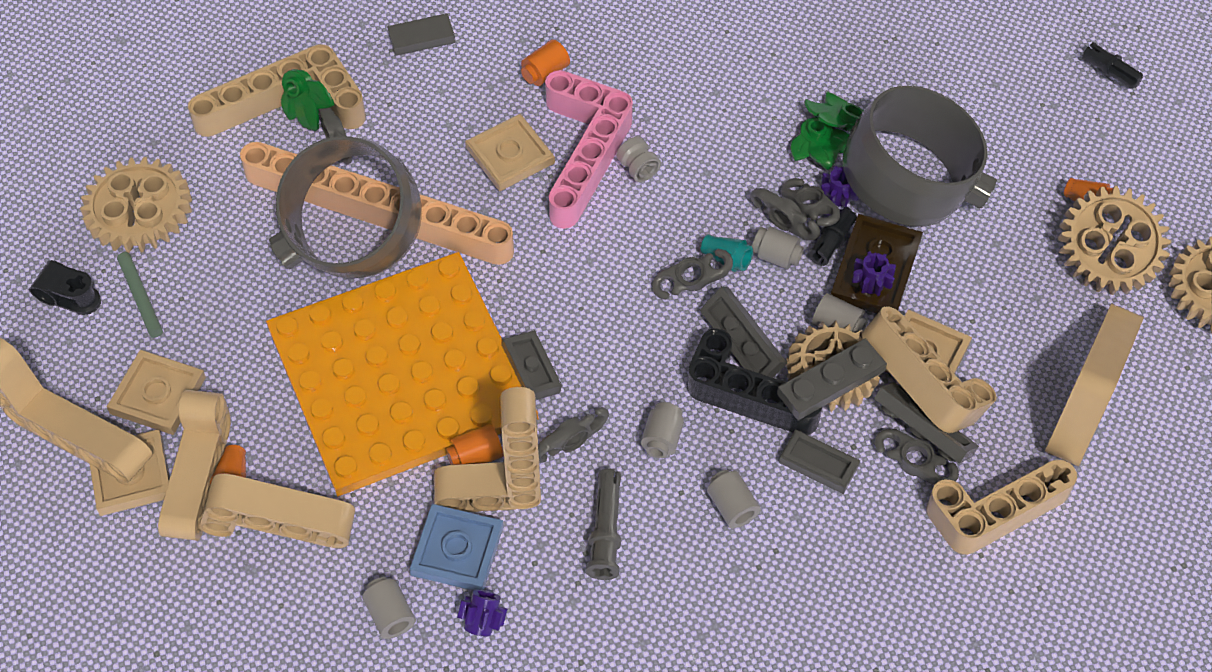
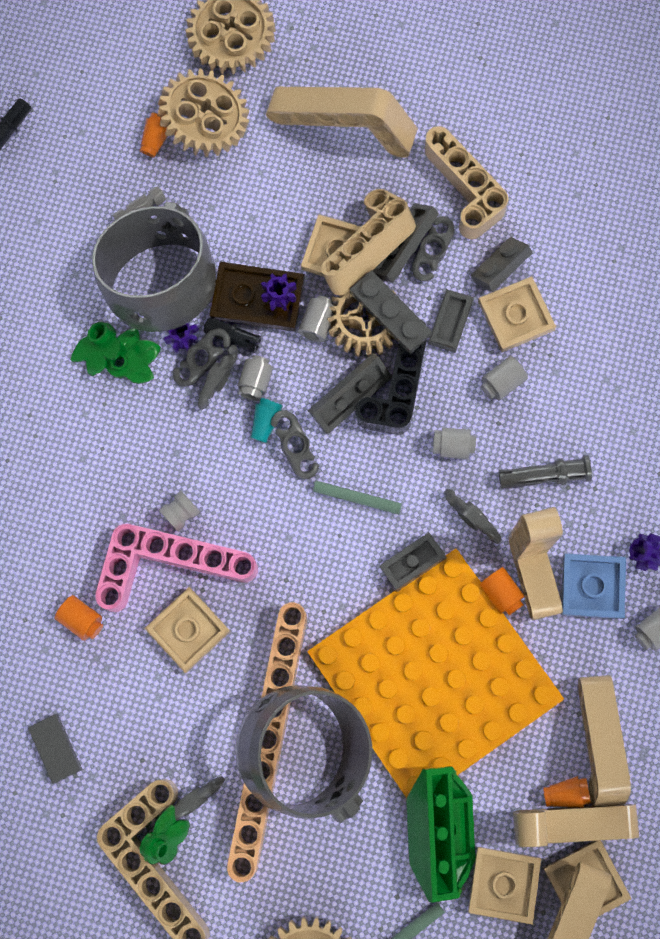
camera: 90 degrees left, 20 degrees up
(227, 339) = (440, 833): none -> green wedge
(619, 329) = (357, 497): none -> sand green bar
(815, 531) = (516, 314): none -> tan plate
(885, 526) = (501, 264): none -> dark grey plate
(1003, 173) = (154, 197): none -> light grey axle

